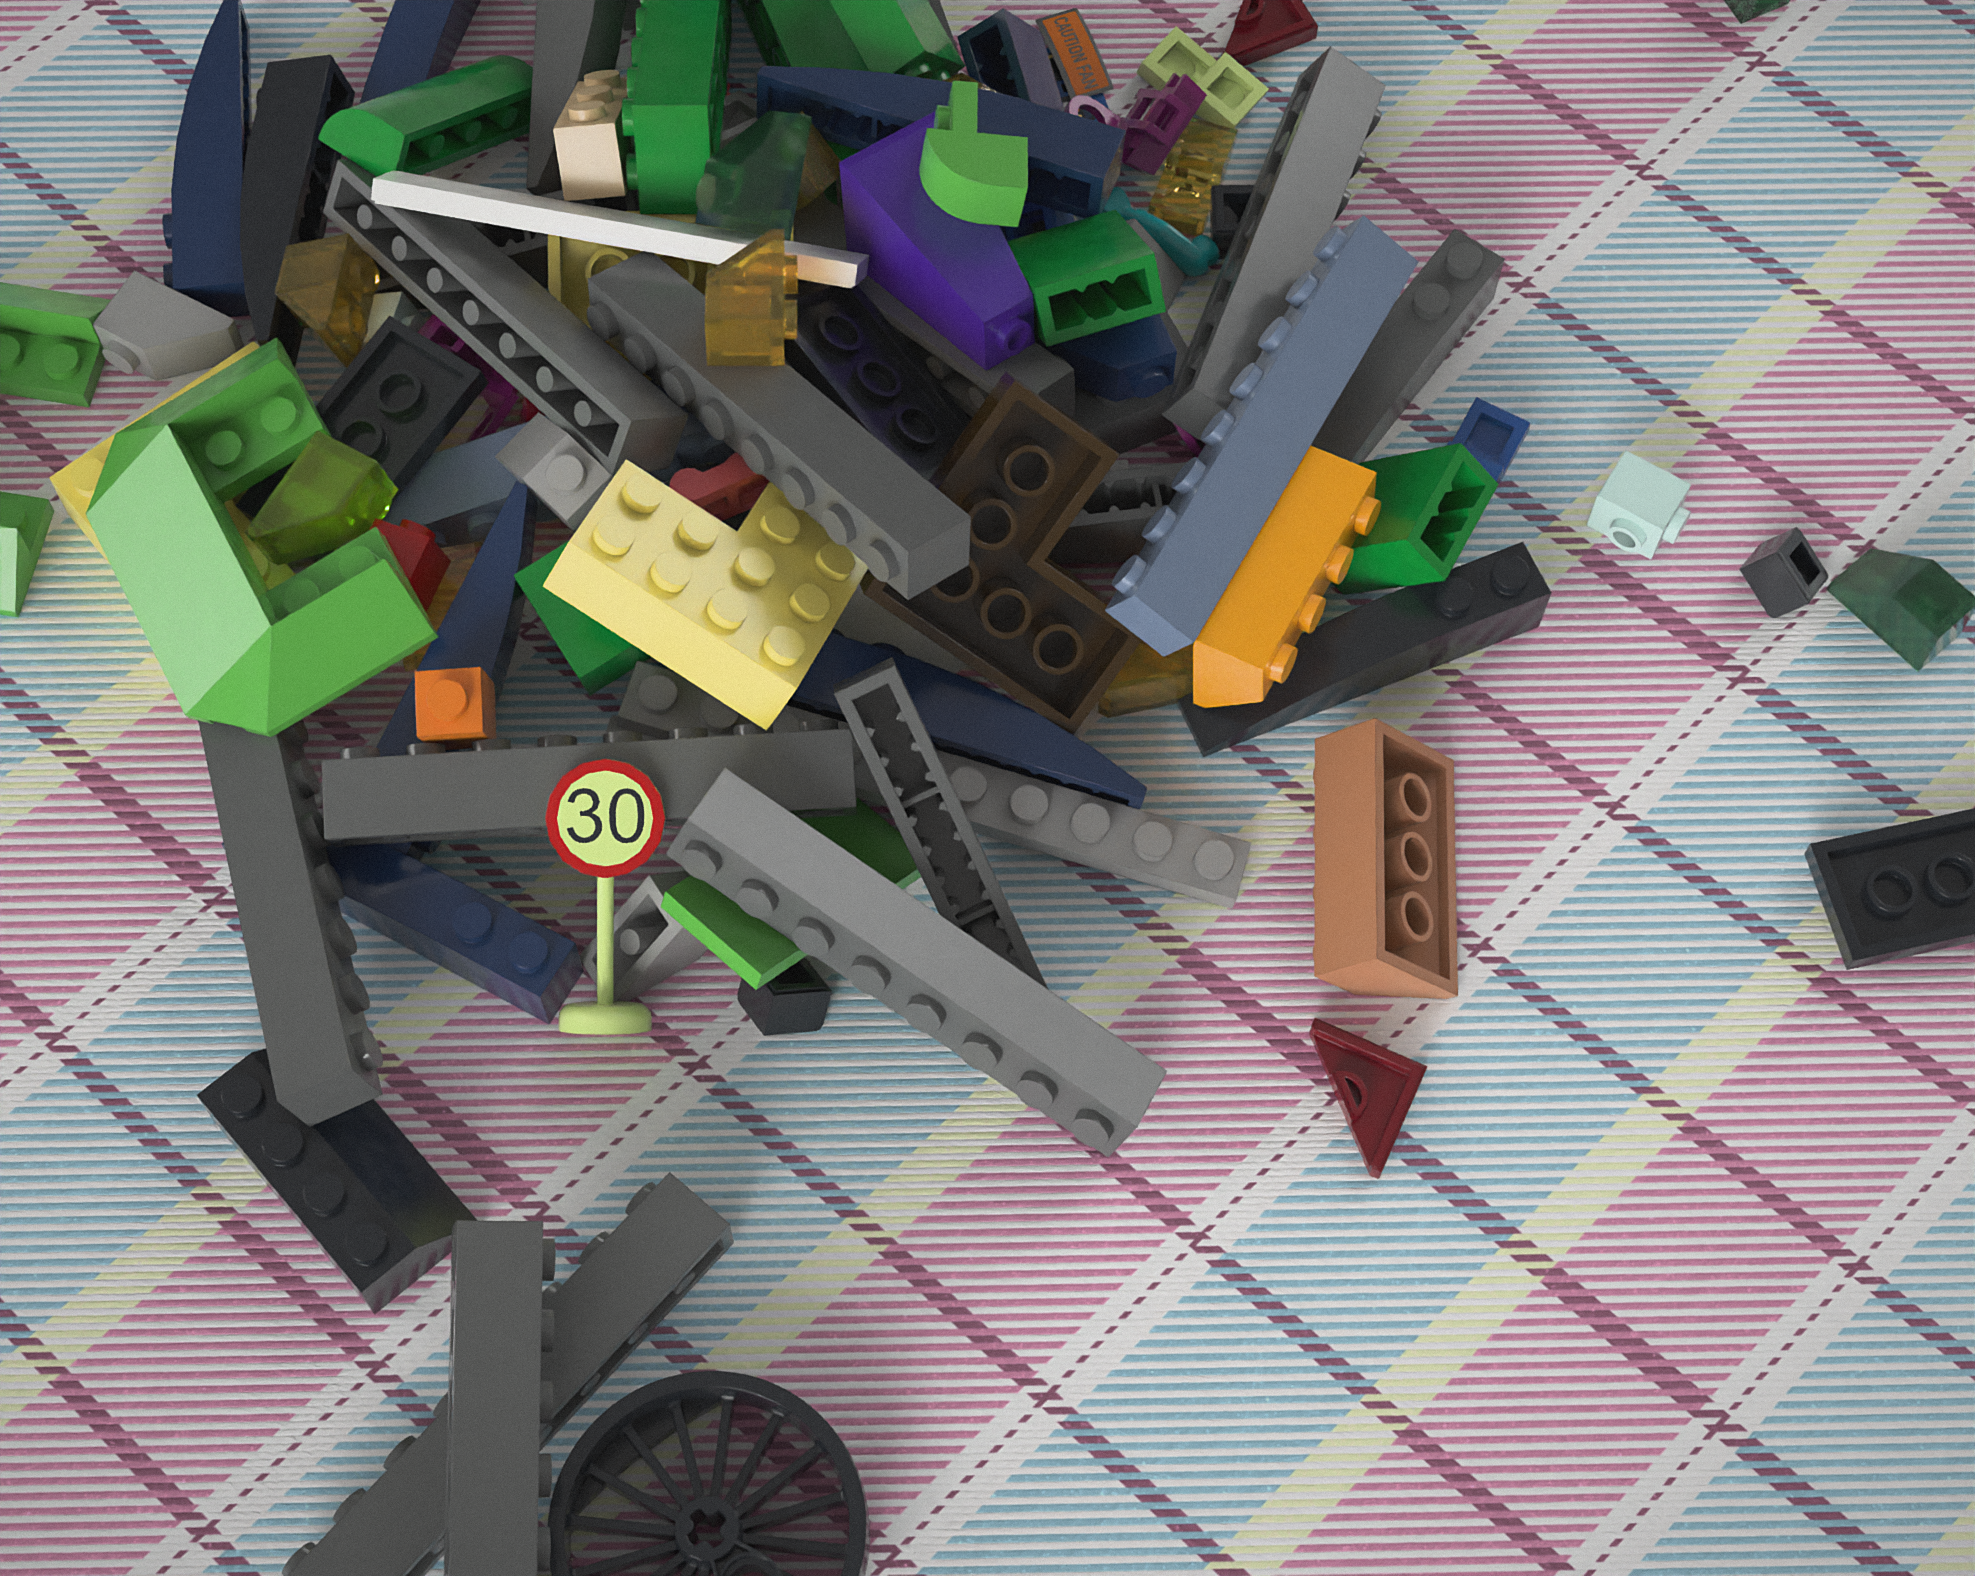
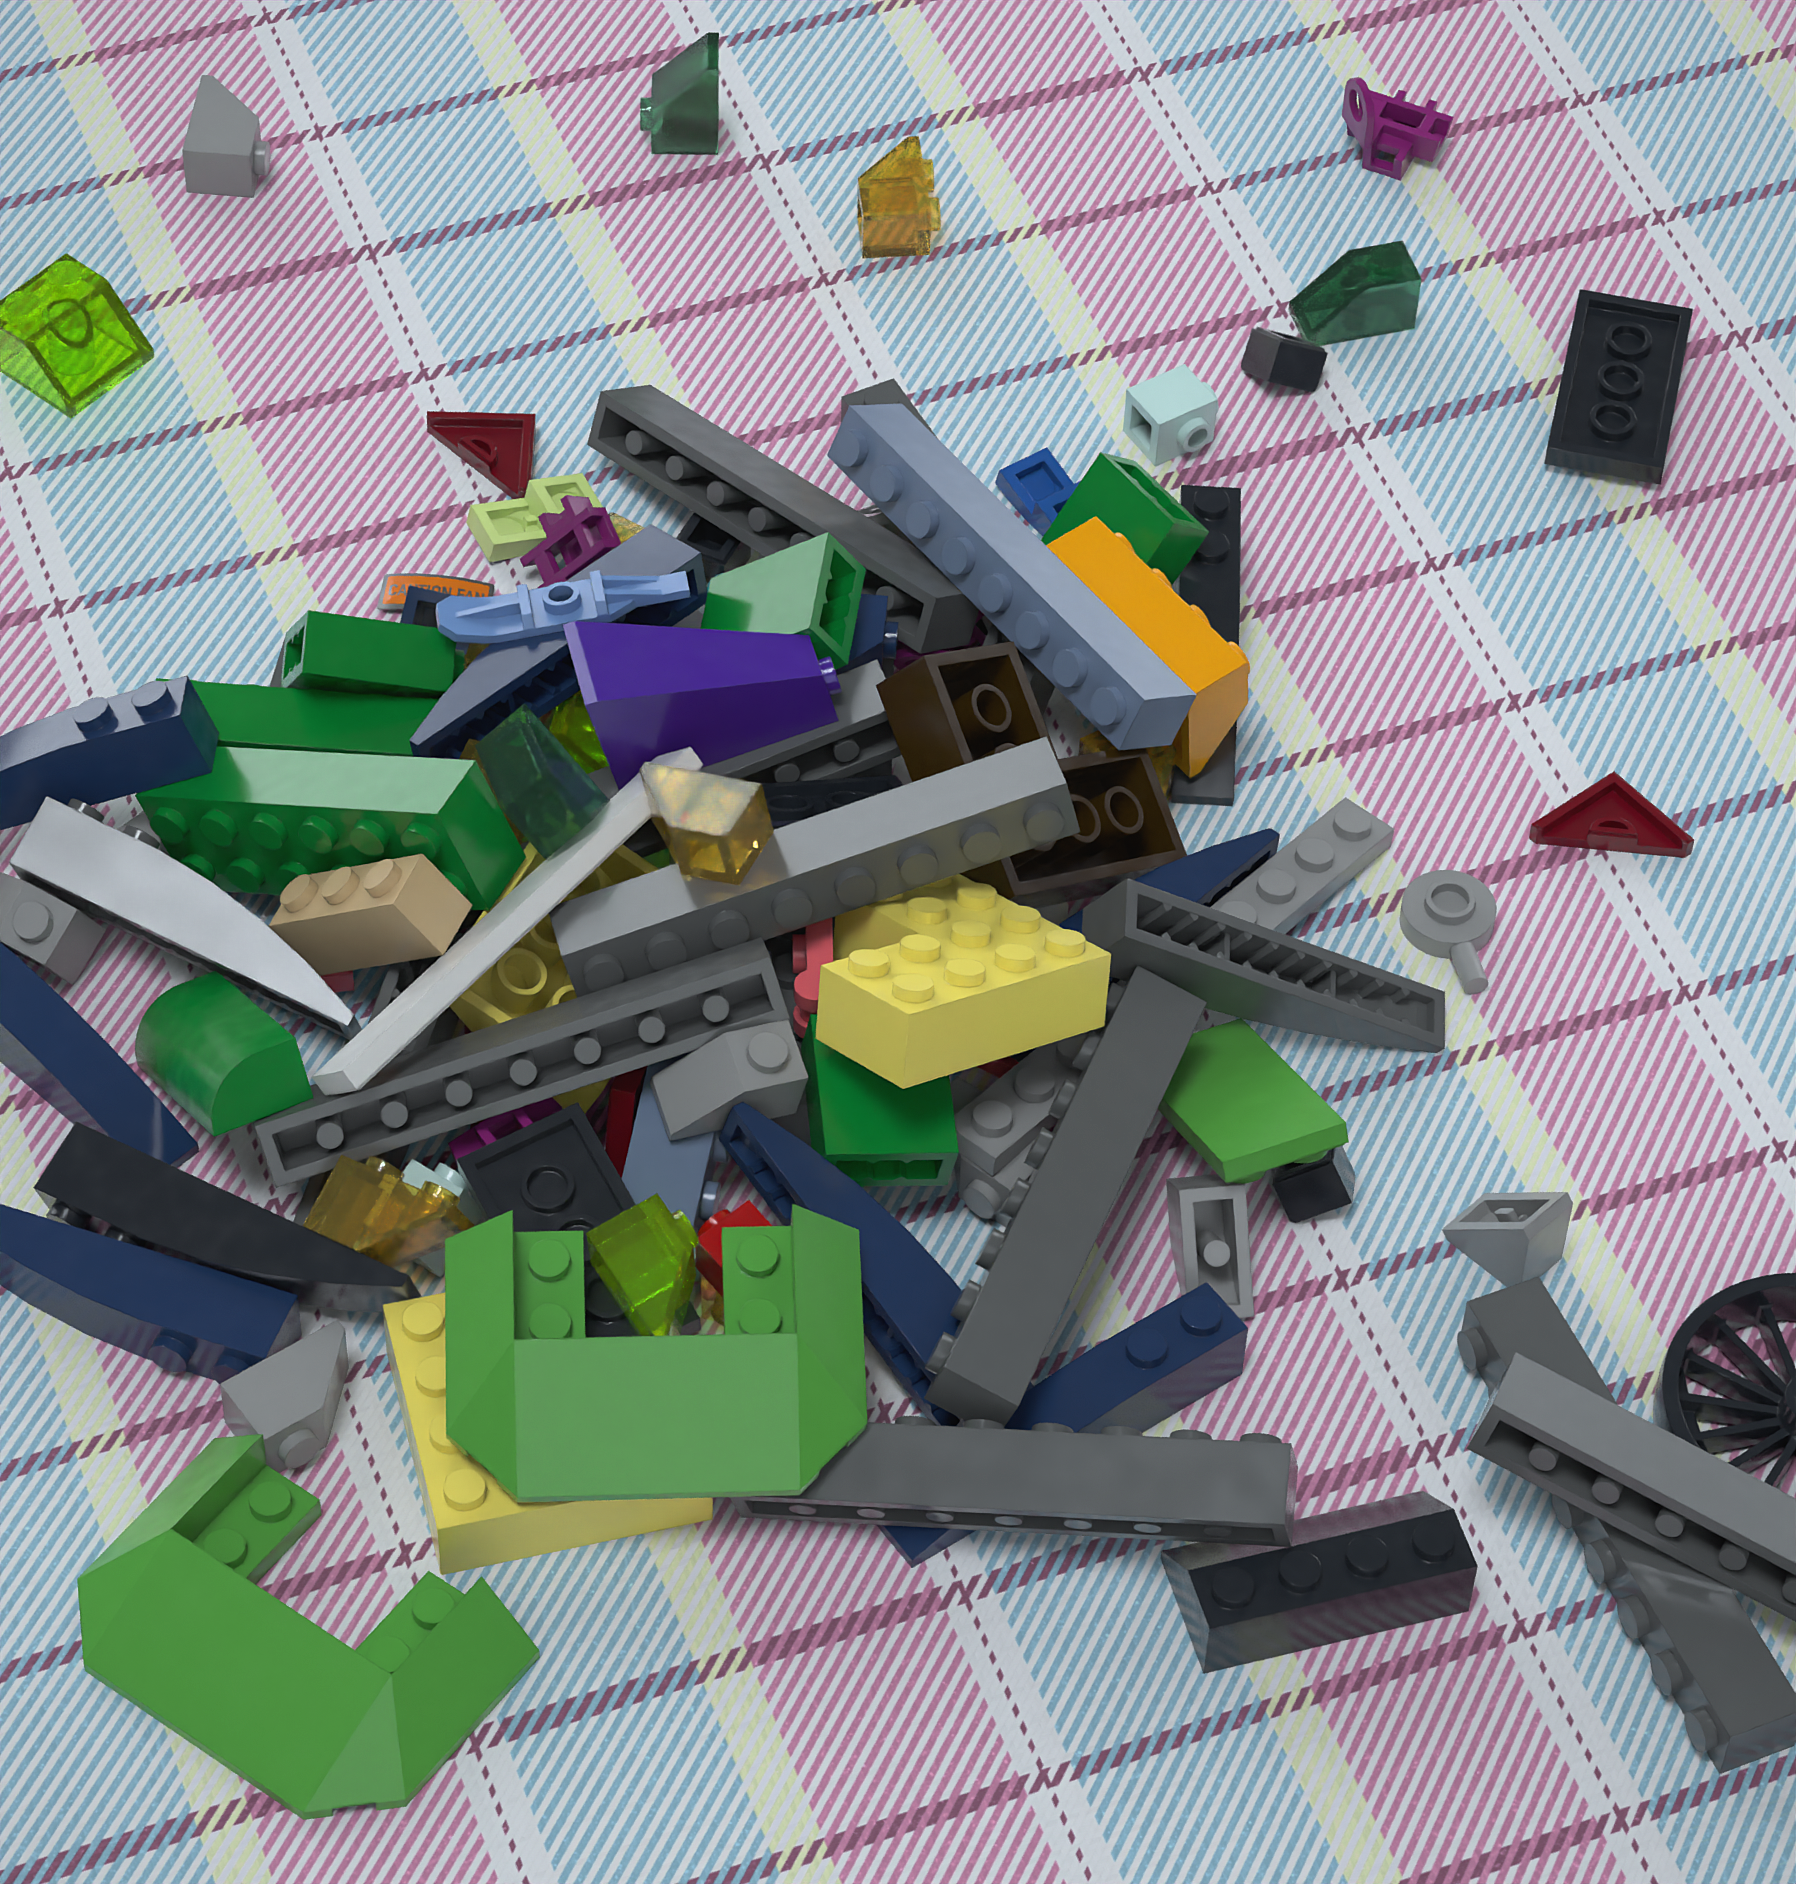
camera: 65 degrees left, 15 degrees down
(455, 707) = (942, 1252): orange brick -> none
(605, 825) = (1130, 1194): yellowish green piece -> none
(796, 1185) = (1513, 1233): none -> light grey slope
(917, 963) = (1368, 1030): brick -> none
(937, 59) = (550, 607): none -> medium blue piece
(971, 172) = (659, 614): bright green brick -> none
(1164, 990) = (1452, 919): none -> light grey piece
(1384, 864) = (1414, 720): nougat slope -> none
(1759, 174) = (895, 205): none -> clear yellow slope

